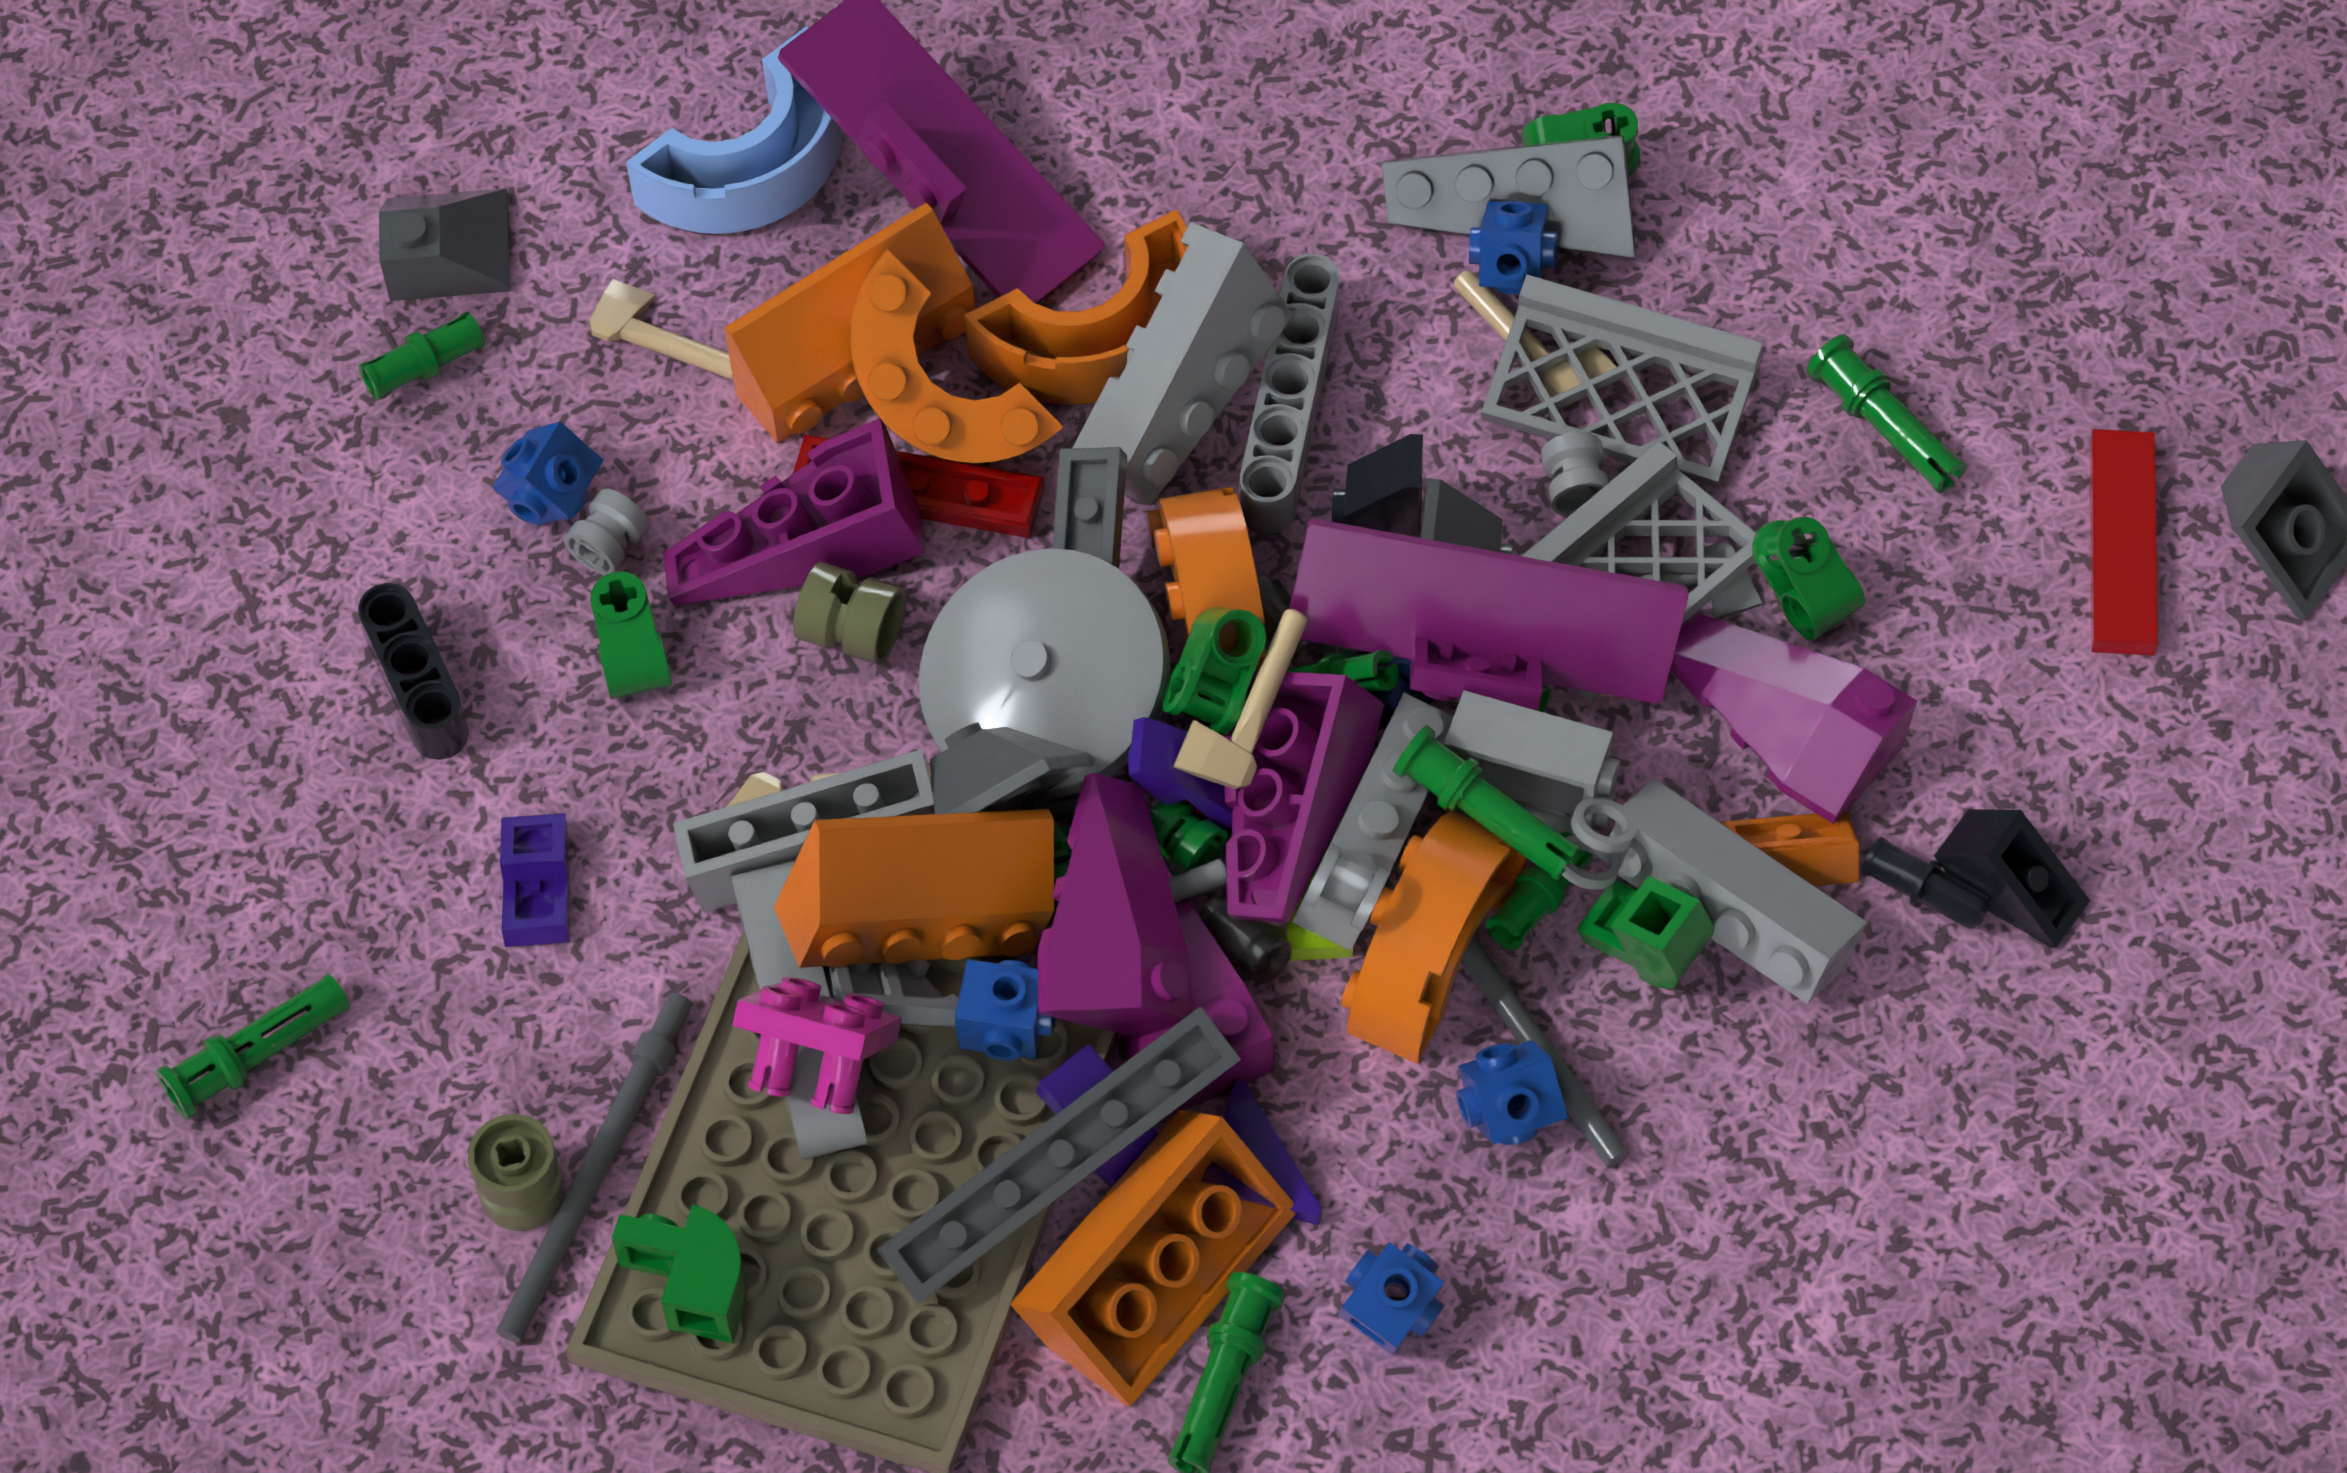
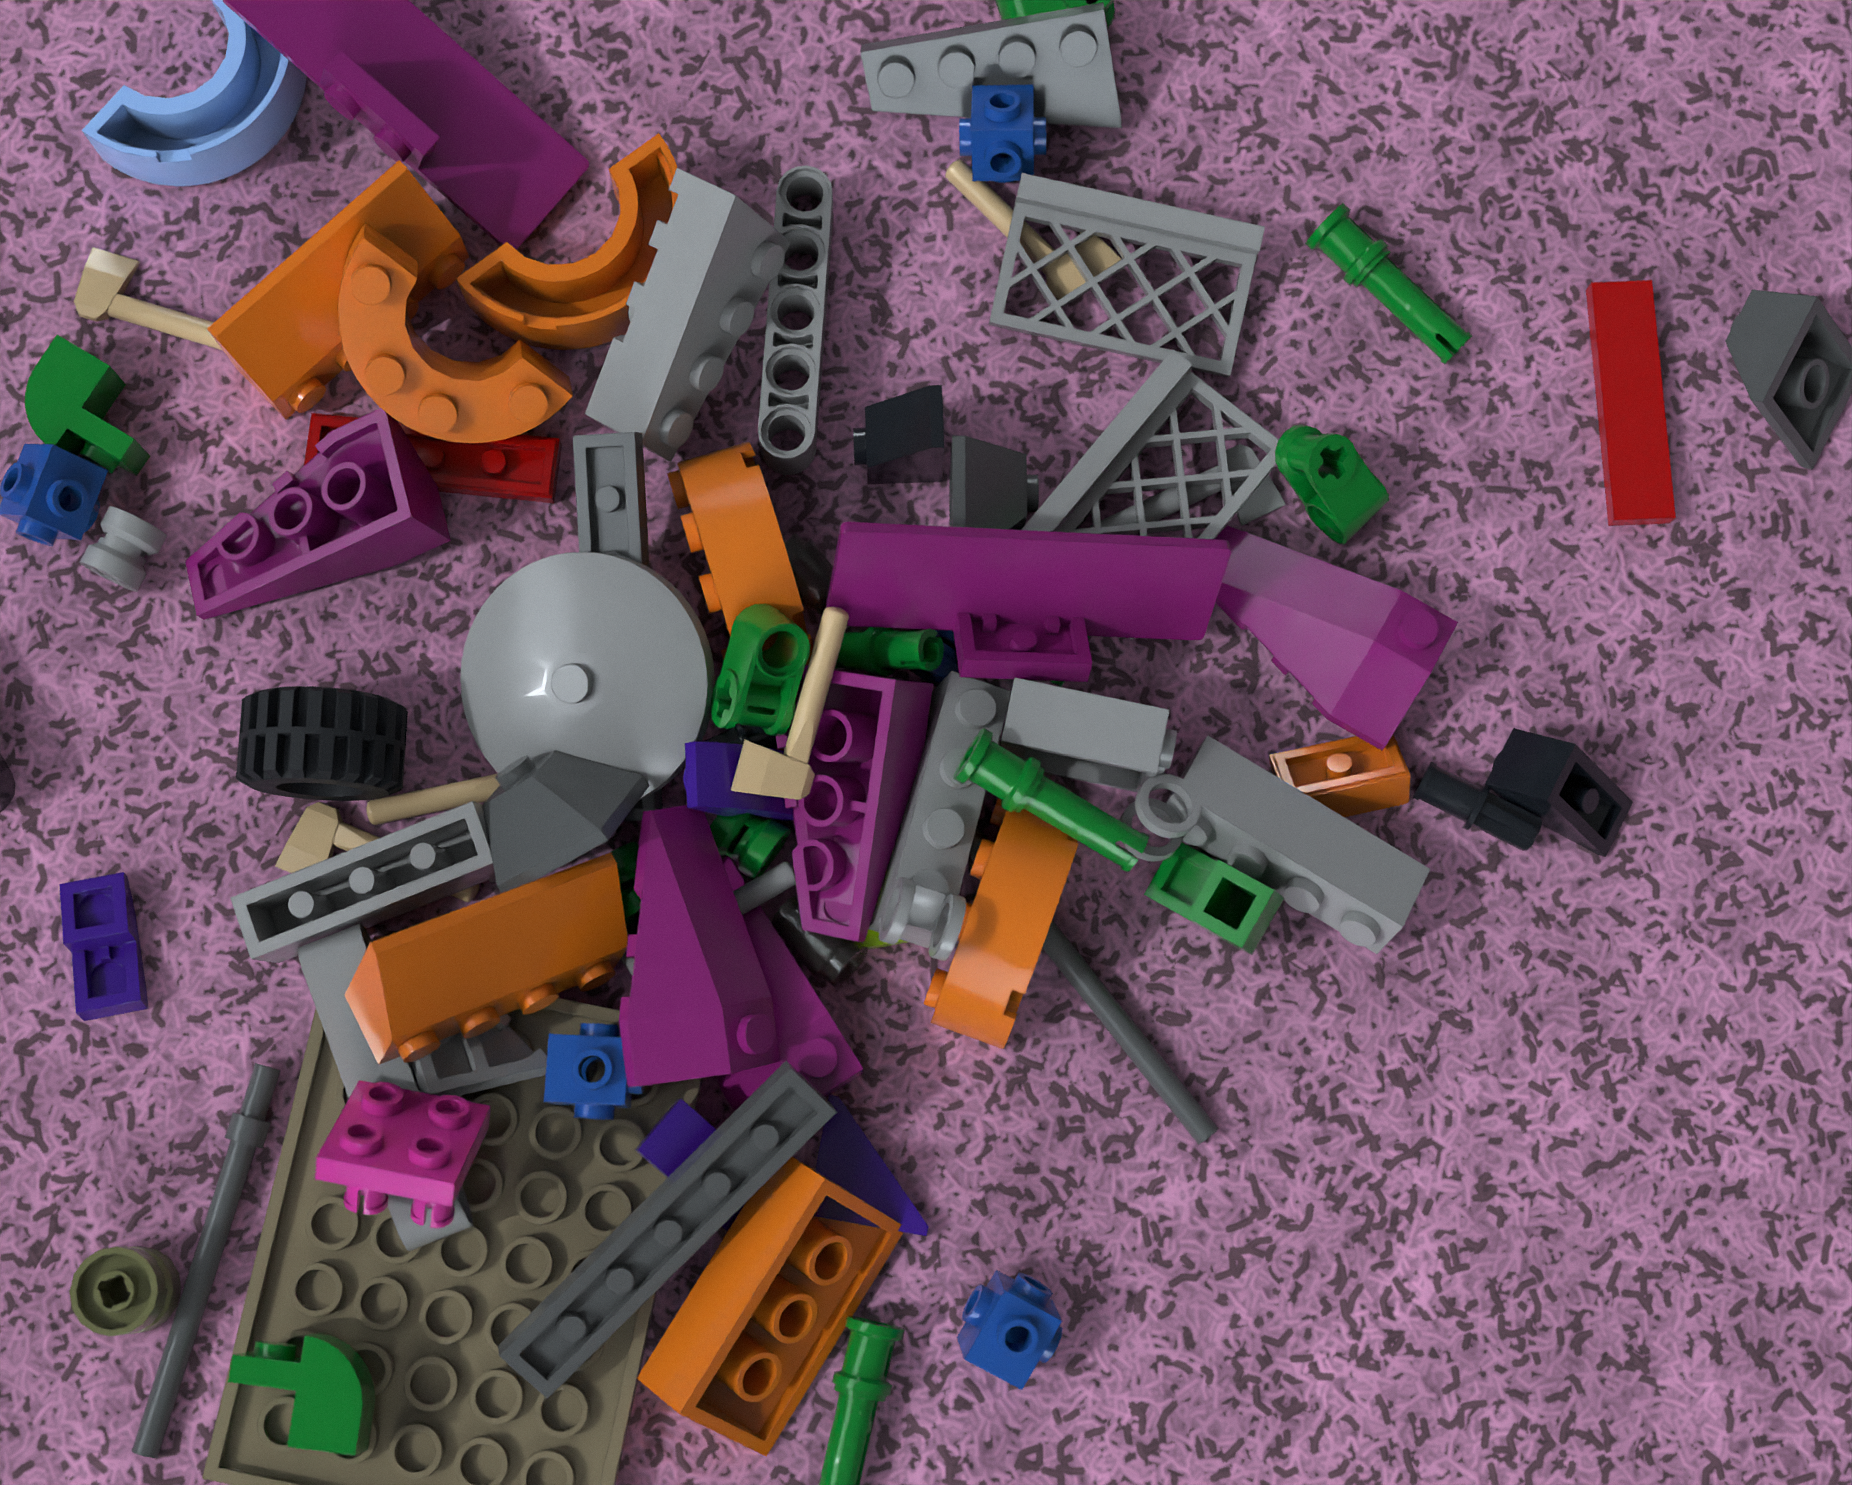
camera: 15 degrees left, 20 degrees up
(583, 394) = (67, 404): none -> green brick
(629, 641) = (164, 680): green piece -> none
(779, 702) = (322, 743): none -> black tyre
(842, 611) = (404, 618): olive wheel -> none
(1510, 1092) = (1101, 1090): blue brick -> none
(1532, 899) = (1093, 871): green pin -> none
(1575, 470) = (1091, 385): light grey wheel -> none

